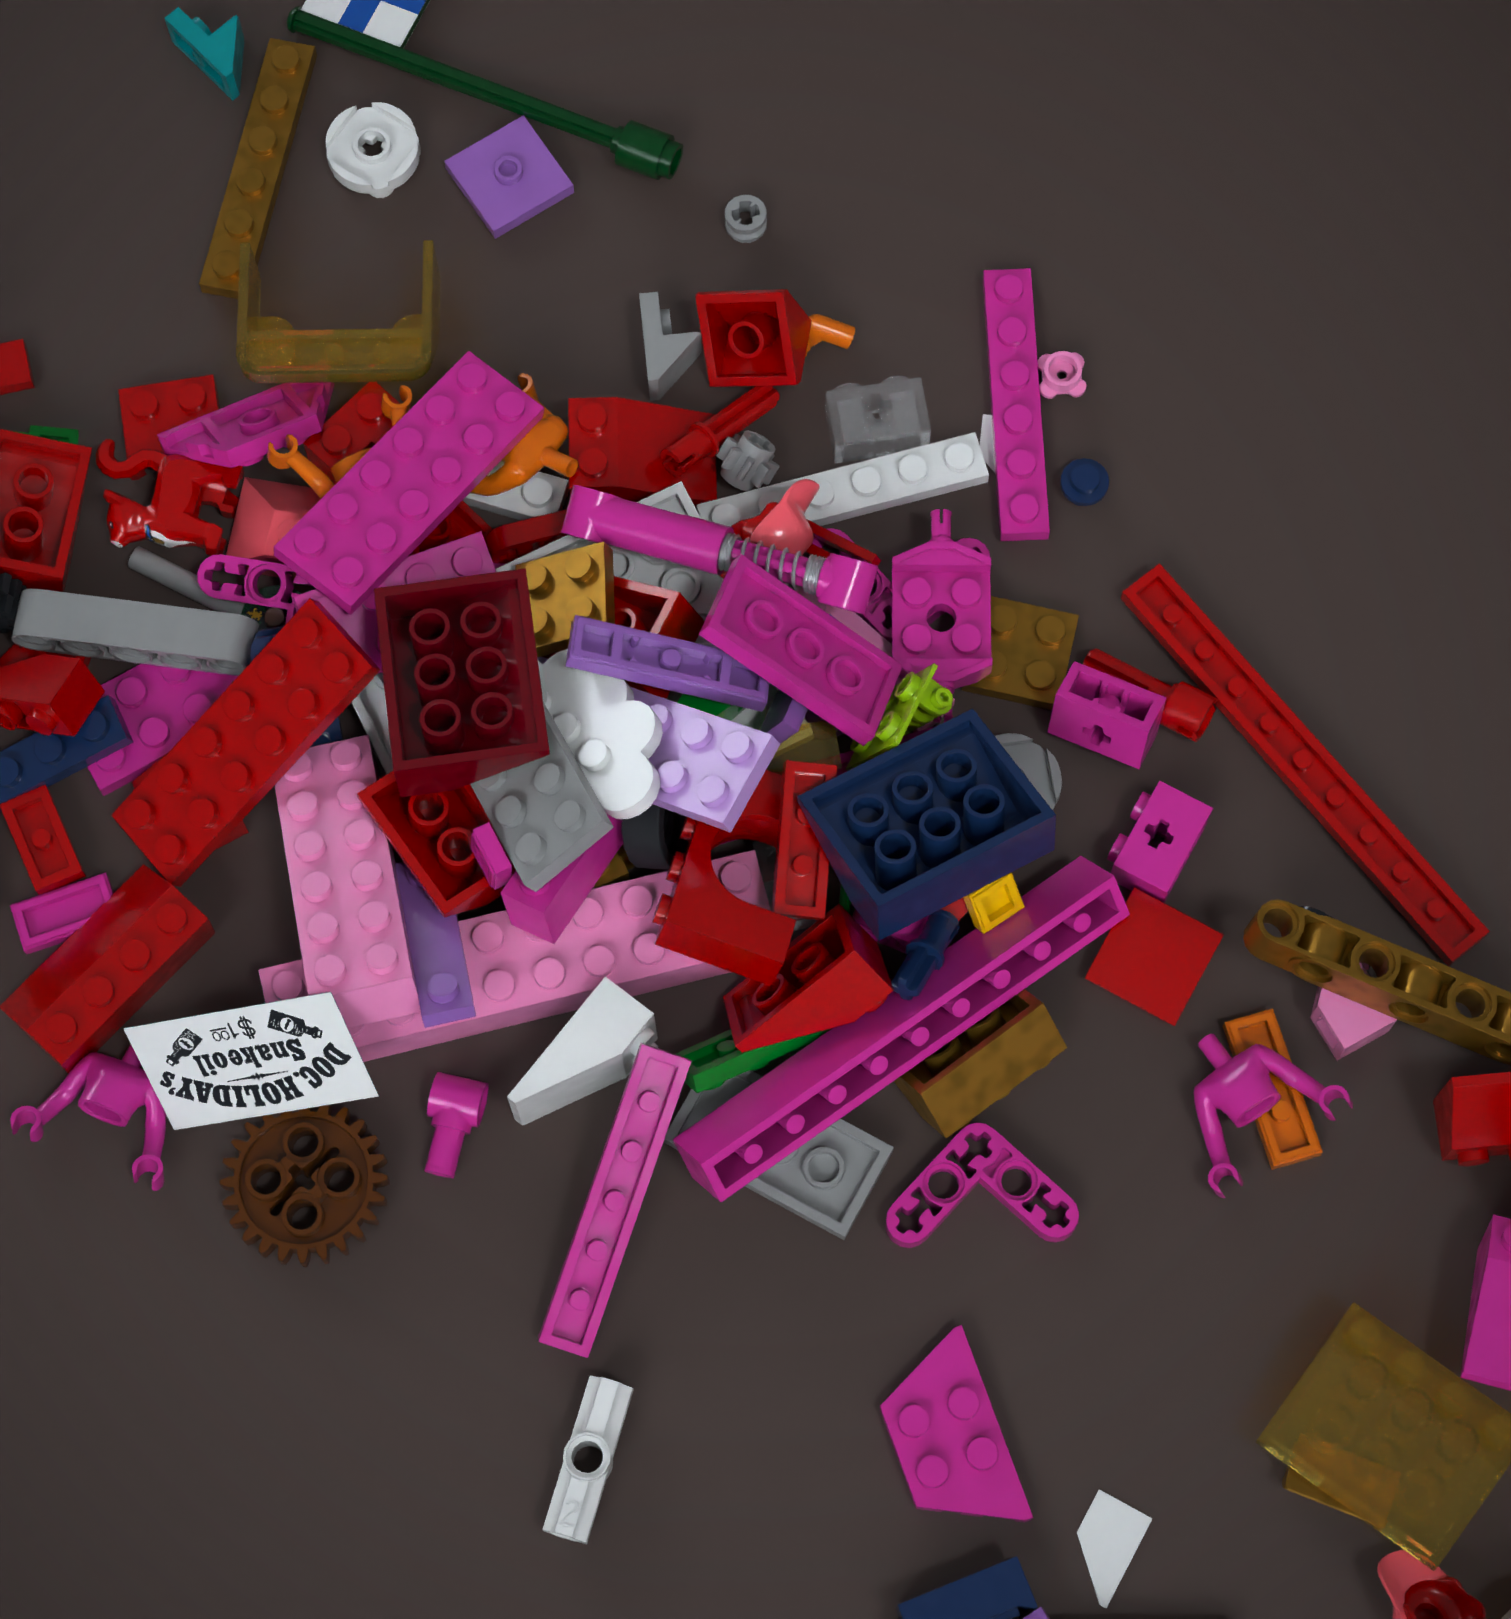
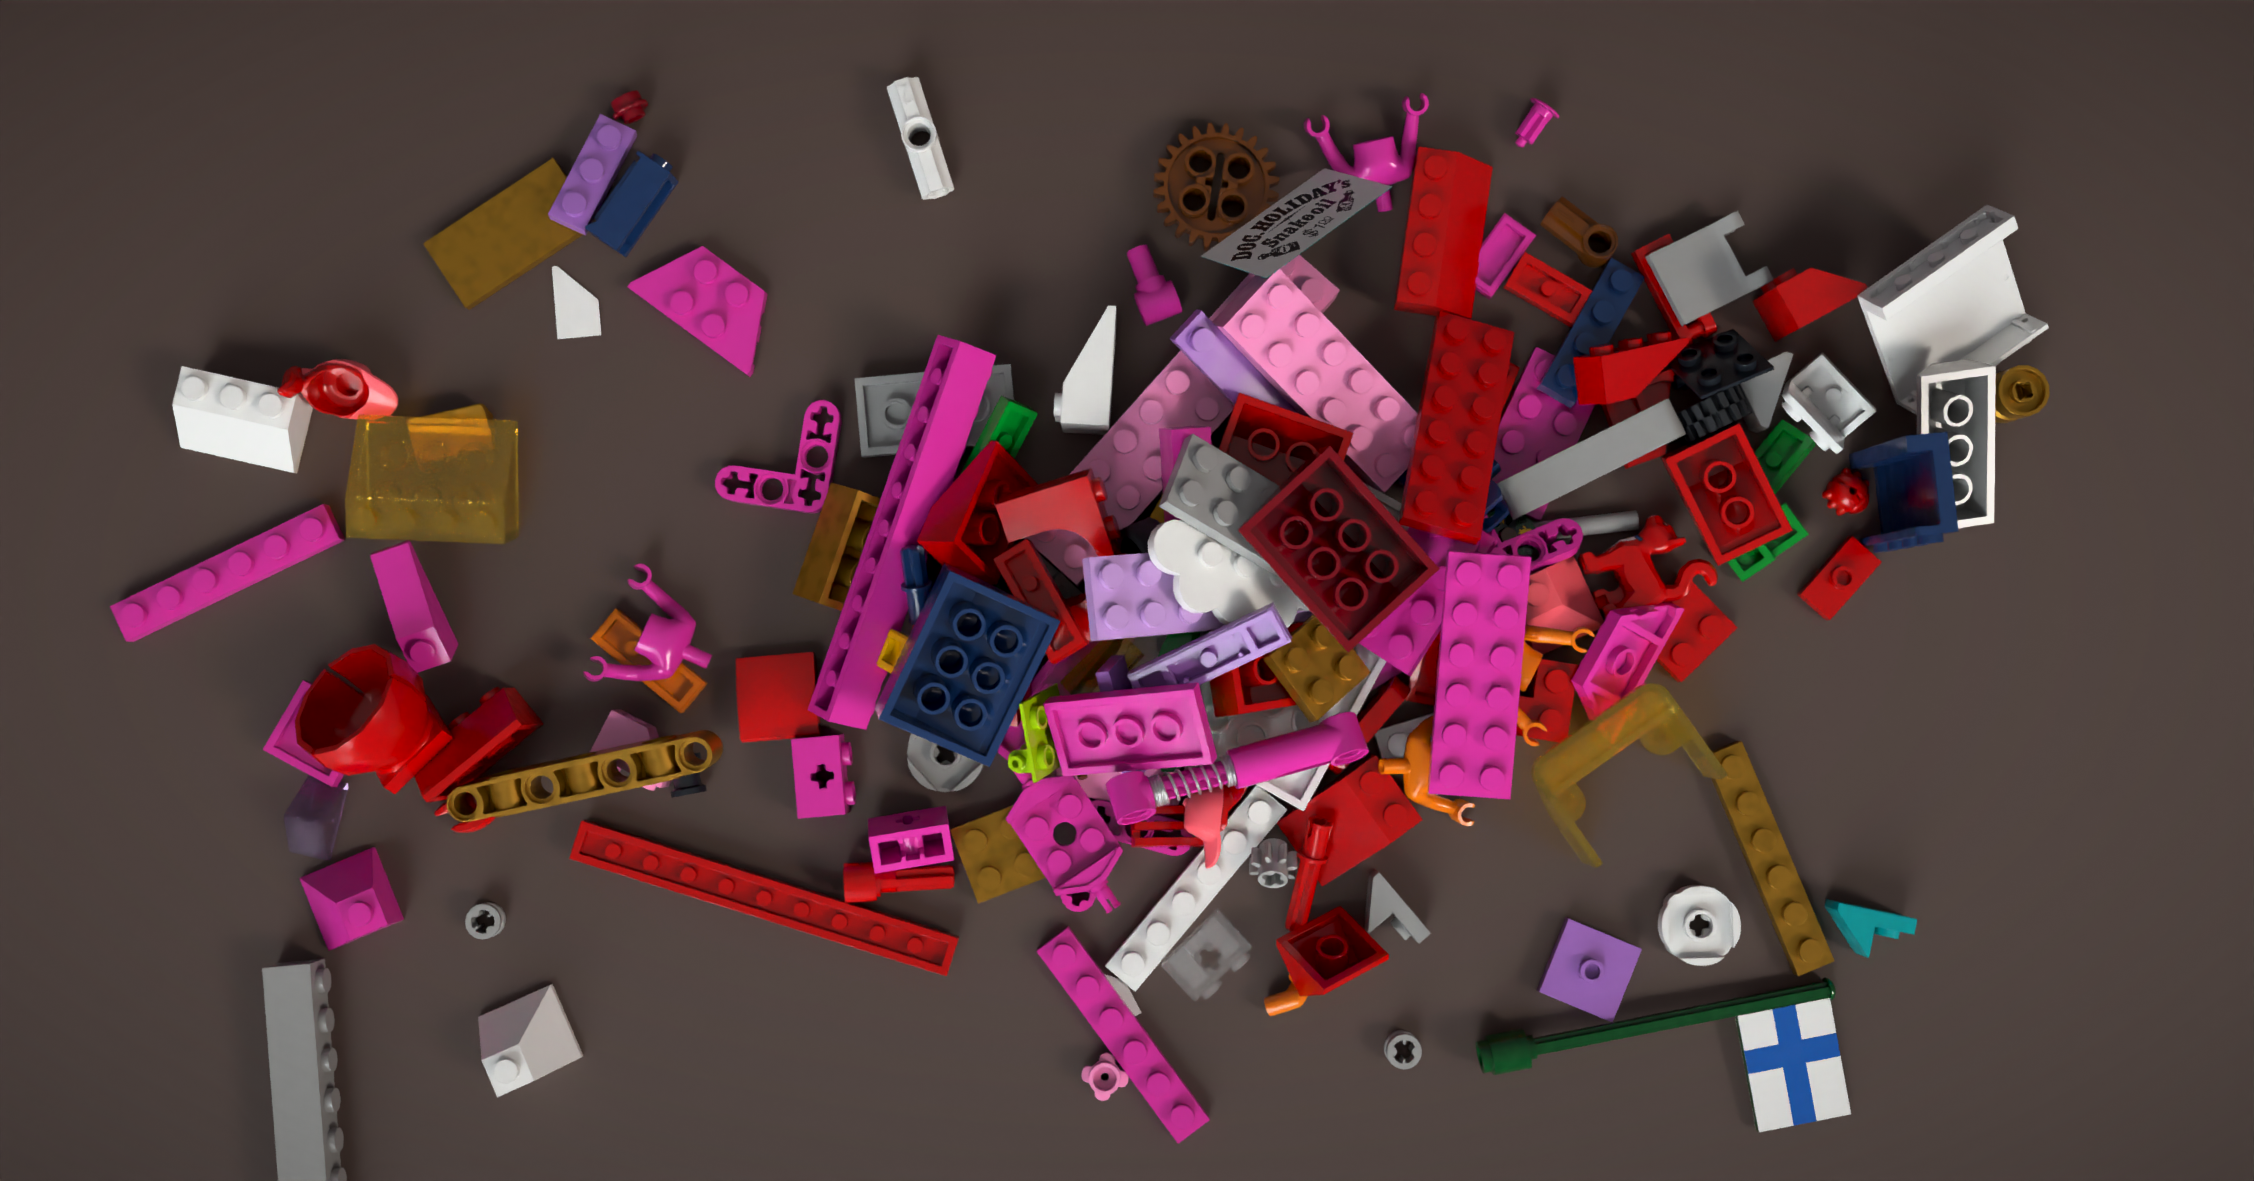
camera: 145 degrees right, 15 degrees up
(490, 856) = (1233, 446): dark pink tile -> none
(614, 1200) = (1010, 300): dark pink plate -> none
(1084, 482) = (1037, 1005): dark blue plate -> none

